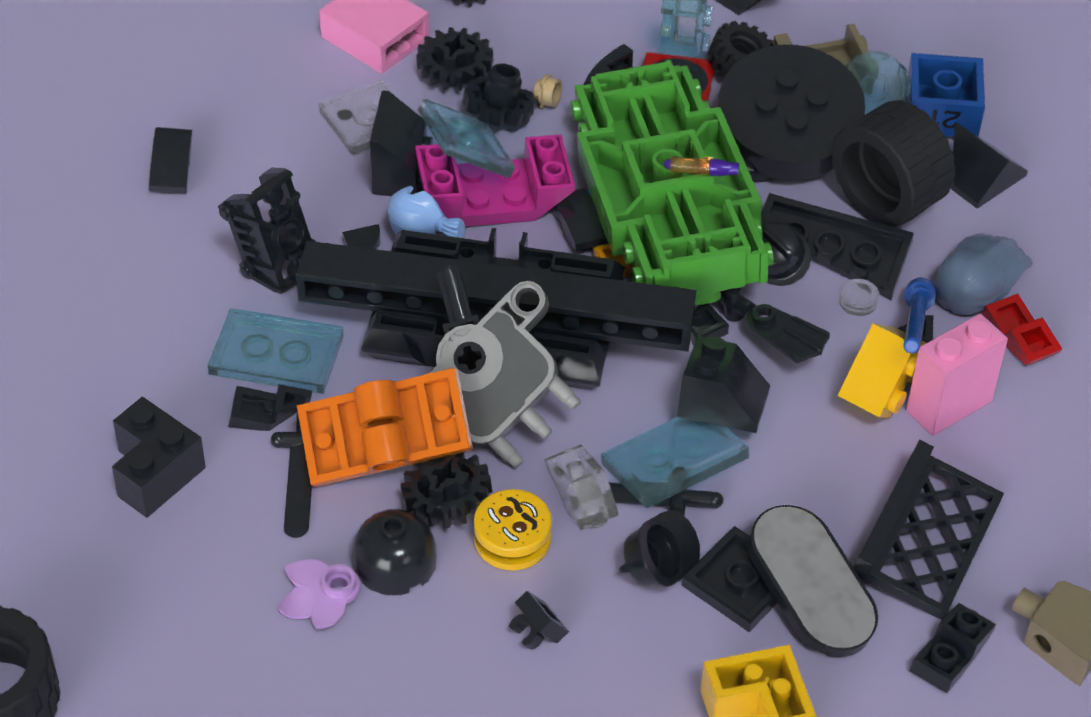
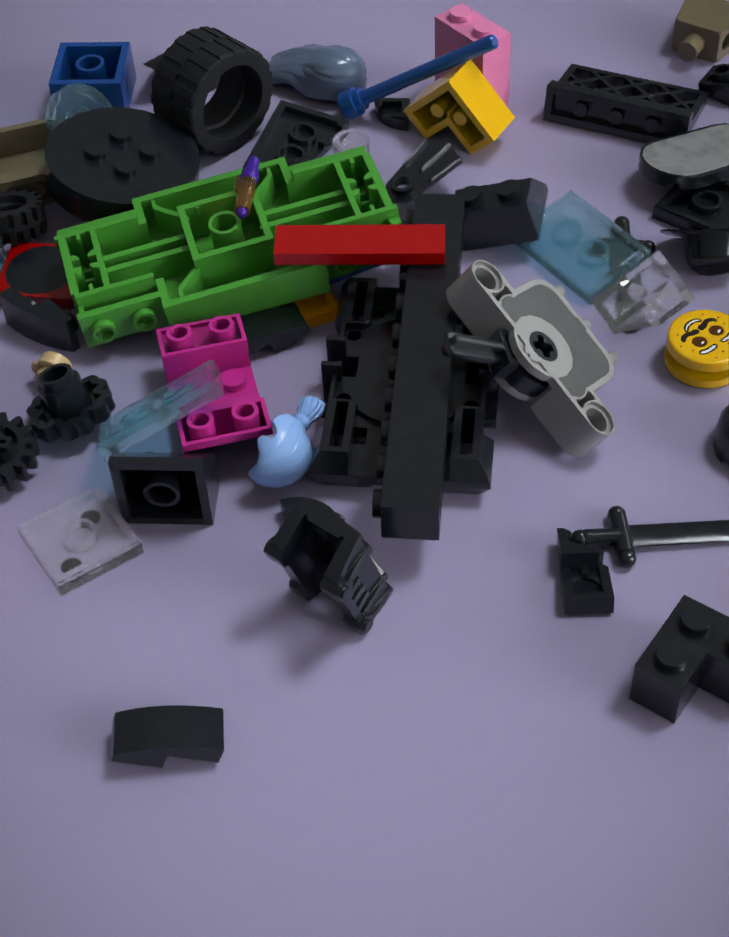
camera: 90 degrees left, 0 degrees up
(276, 350) = (491, 580): clear light blue tile -> none
(384, 427) = (628, 435): orange plate -> none
(449, 486) = (672, 396): black gear -> none
(613, 240) = (360, 244): none -> red tile
(1027, 338) = (389, 52): red slope -> none

